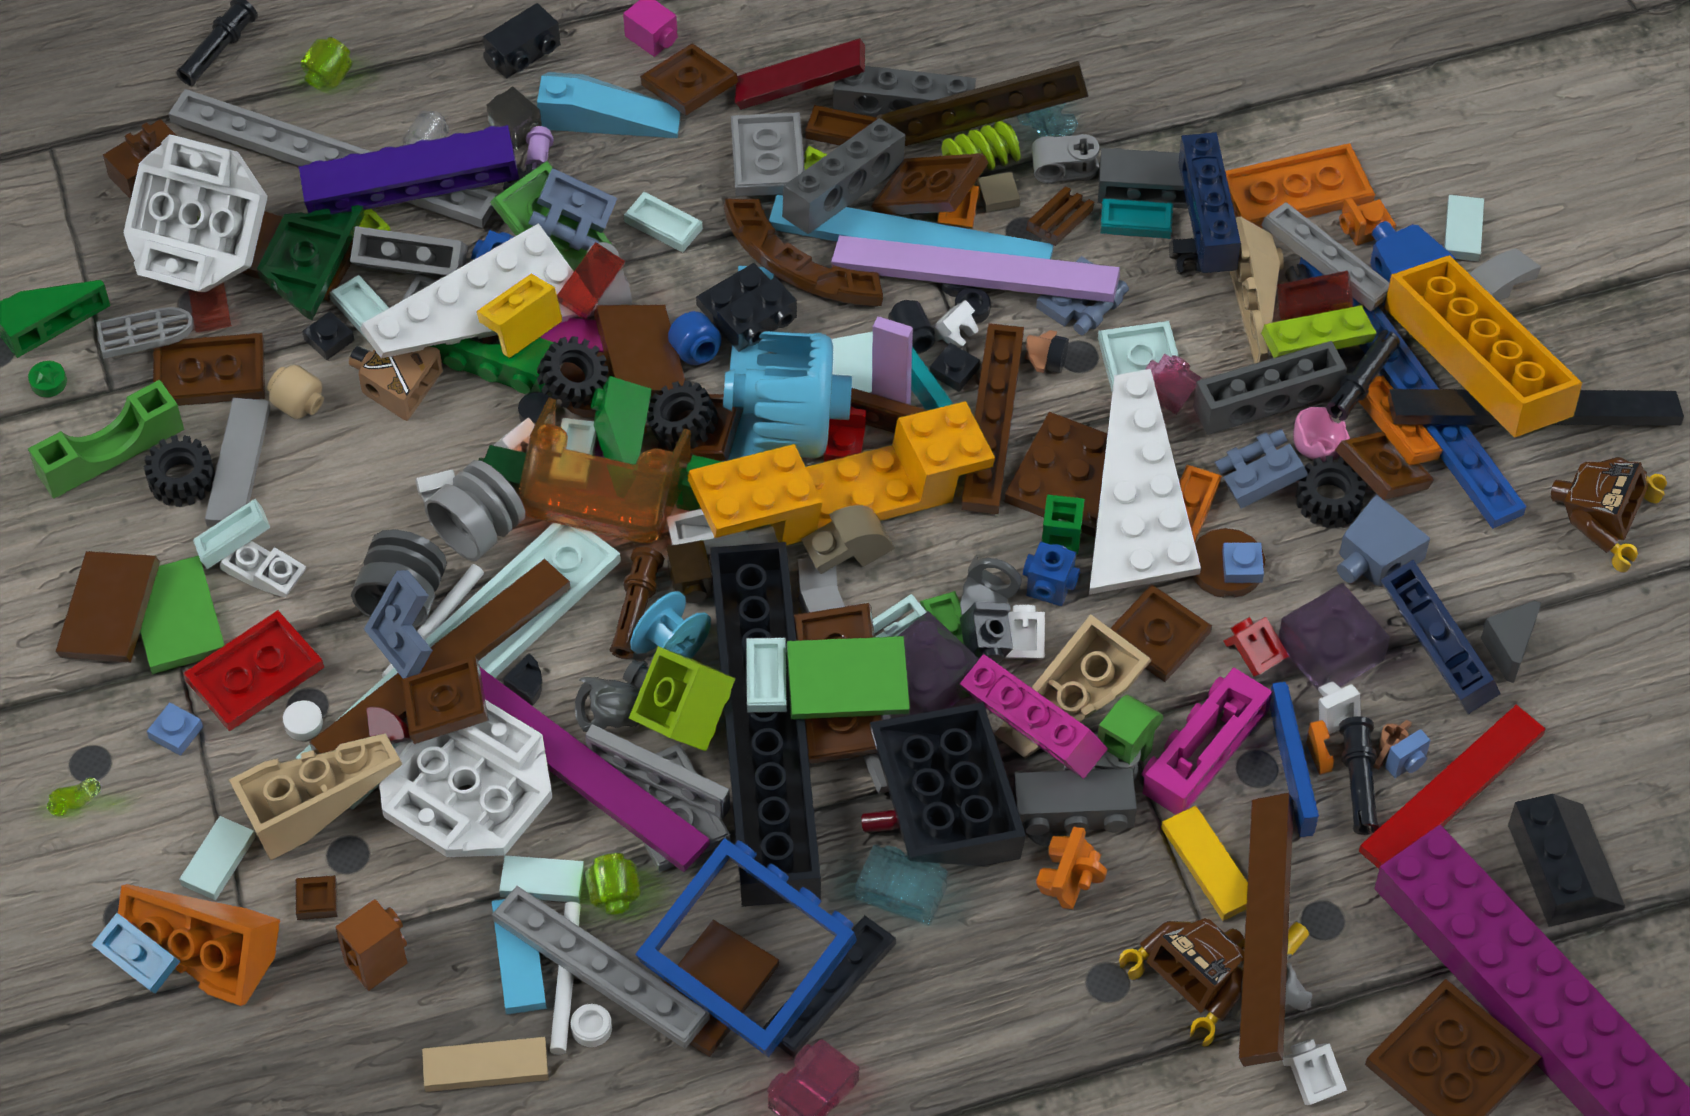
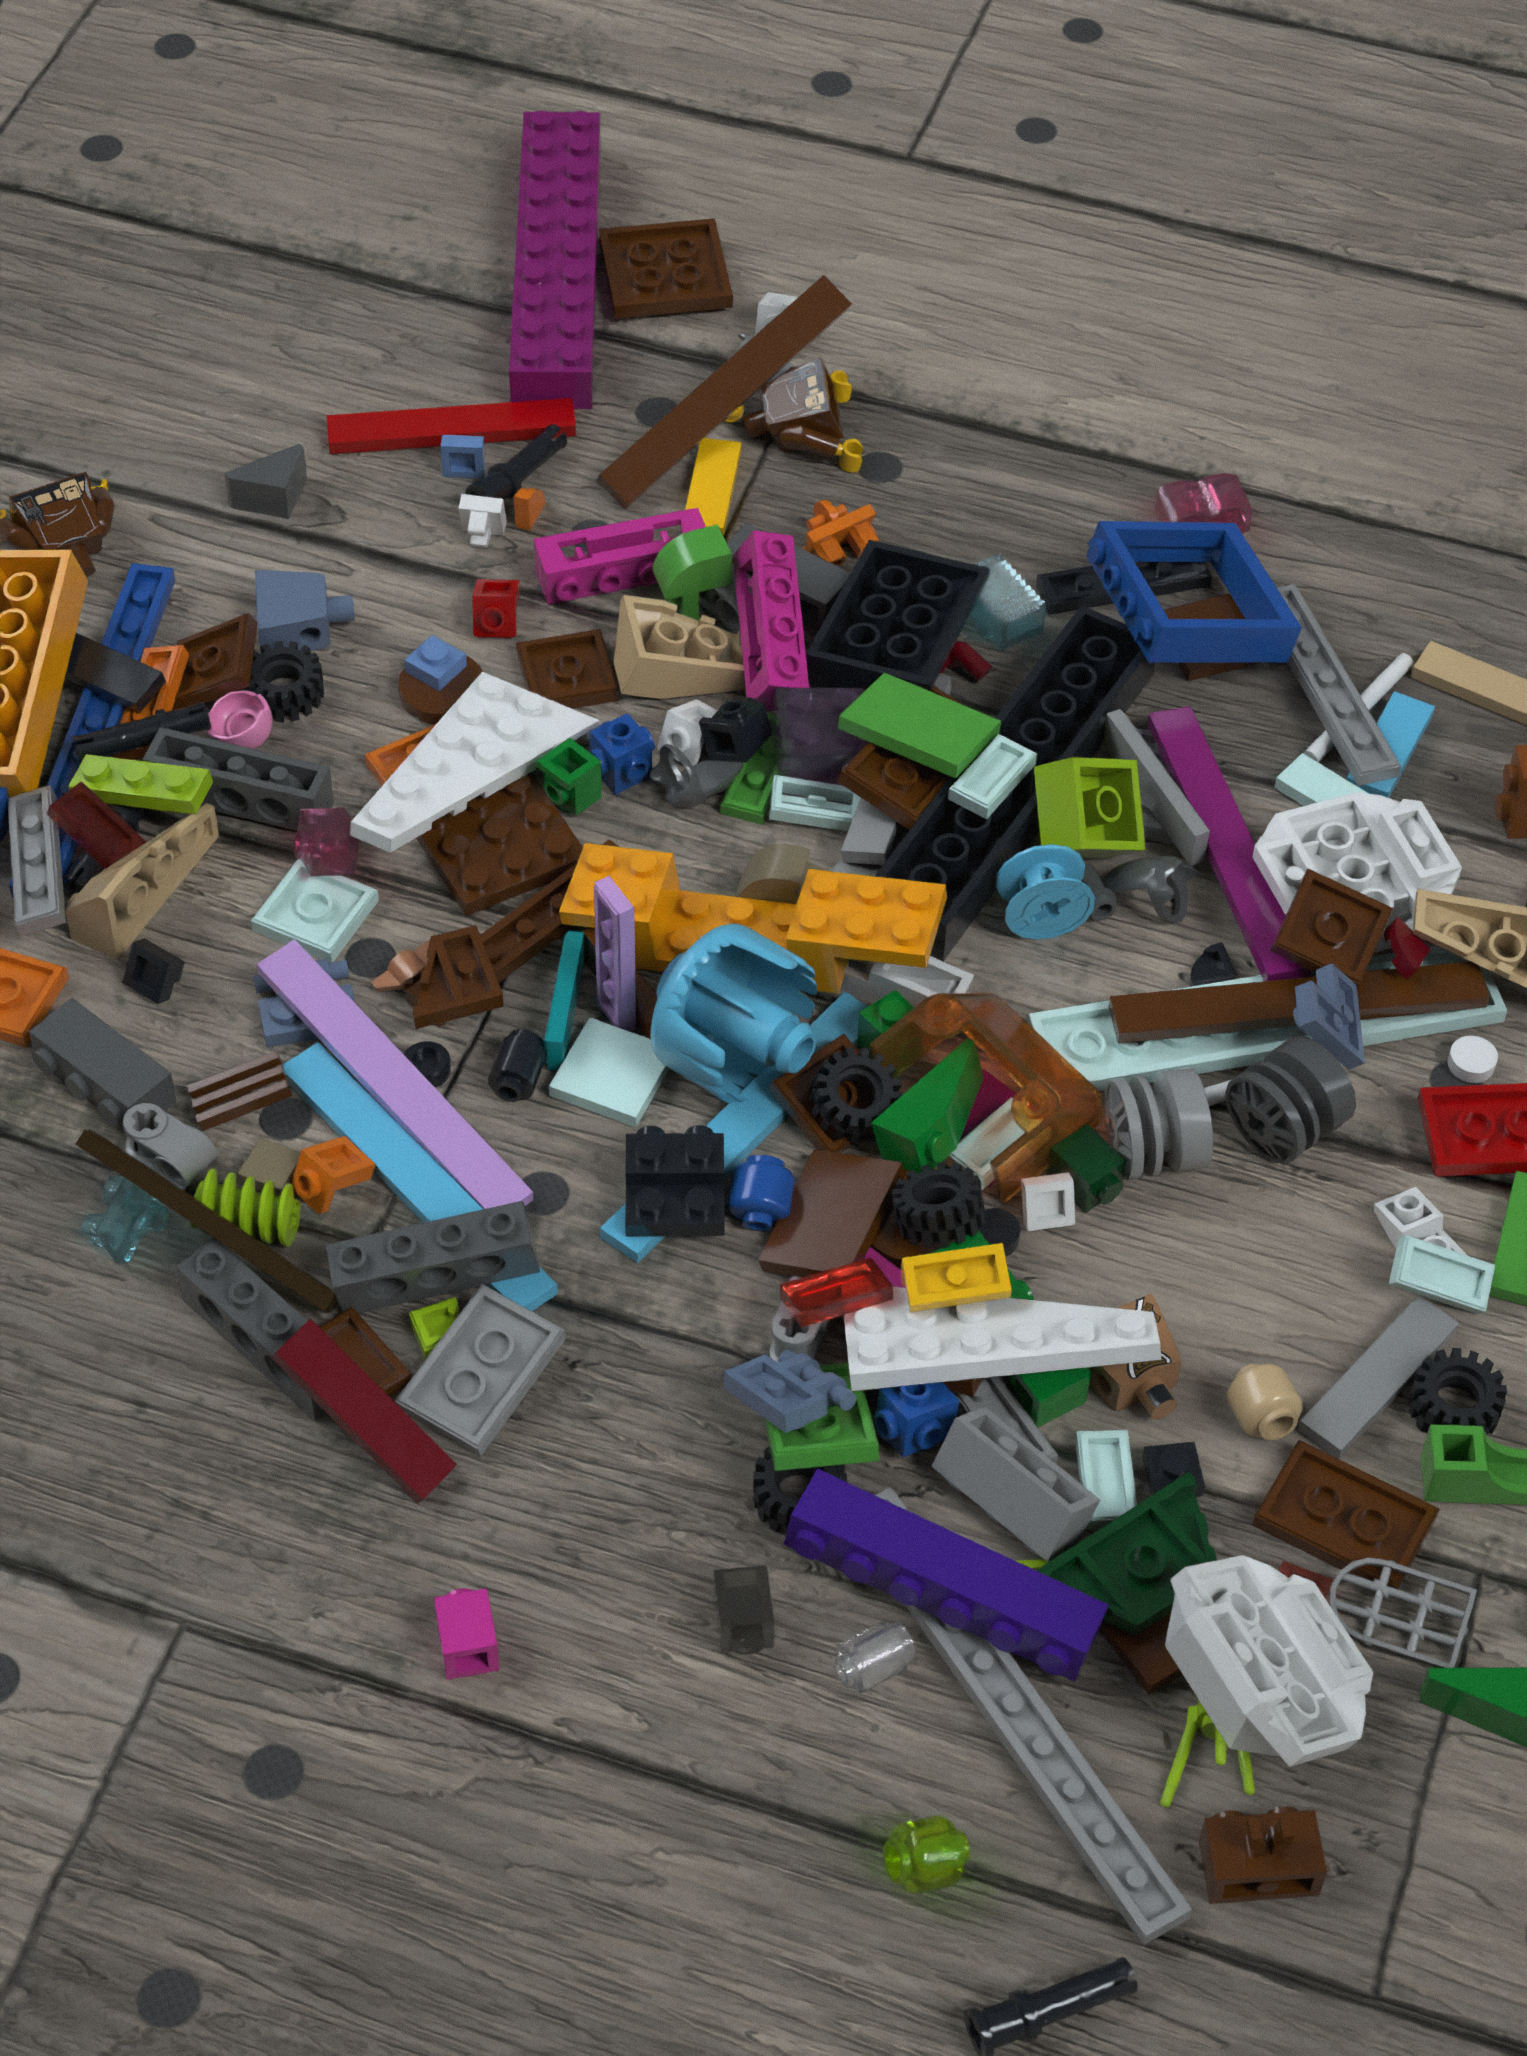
camera: 145 degrees left, 5 degrees down
(432, 483) = (1171, 1204): white tile -> none
(521, 41) = (647, 1719): black brick -> none
(539, 143) = (747, 1549): lavender pin -> none
(591, 1025) = (1362, 662): white tile -> none
(596, 106) = (625, 1573): medium azure wedge -> none
(613, 883) = (1263, 739): clear neon green head -> none
(639, 588) = (1033, 977): reddish brown pin -> none
(663, 222) = (671, 1372): light aqua tile -> none
(689, 79) = (484, 1529): reddish brown plate -> none
(690, 571) = (976, 951): dark brown brick -> none
(794, 266) = (582, 1224): reddish brown tile -> none
(930, 184) = (350, 1173): reddish brown tile -> none
(954, 367) = (516, 1013): black plate -> none
(956, 318) = (471, 1044): white tile -> none
(993, 338) = (456, 979): none -> reddish brown wing
(1057, 354) = (396, 941): black tile -> none
(1136, 218) = (165, 1047): teal tile -> none
(1209, 203) = (101, 948): dark blue brick -> none
(1264, 475) = (331, 717): sand blue plate -> none
(1293, 759) = (563, 503): blue tile -> none
(1333, 638) = (427, 562): clear purple brick -> none
(1389, 737) = (456, 479): nougat piece -> none
(1440, 637) = (337, 504): dark blue brick -> none
(1563, 859) = (428, 329): black slope -> none

